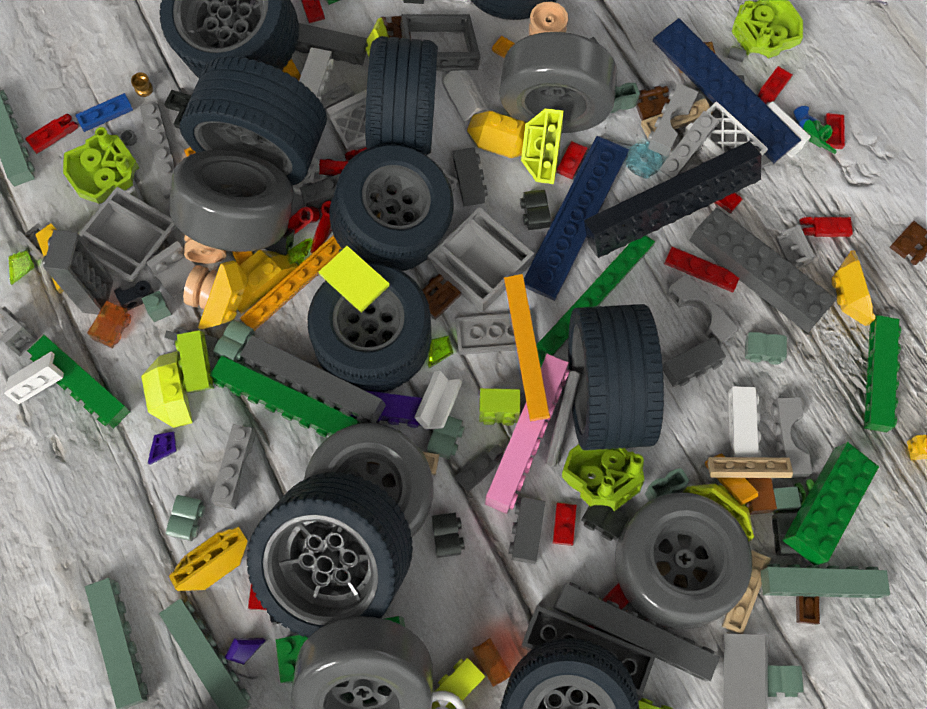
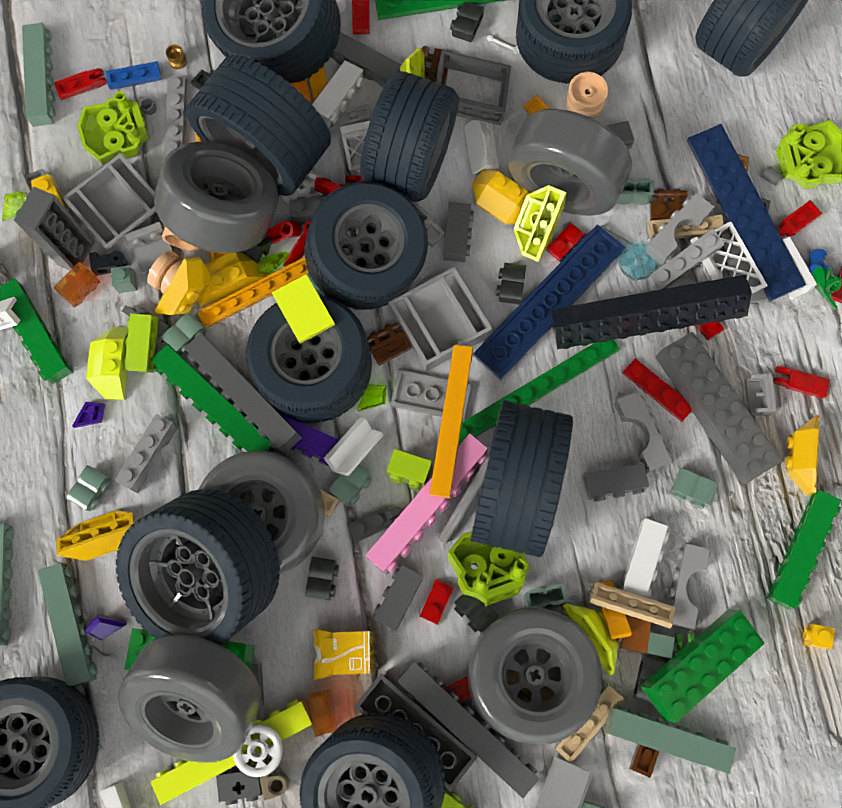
camera: 25 degrees right, 5 degrees up
(491, 599) = (342, 653): none -> yellow piece

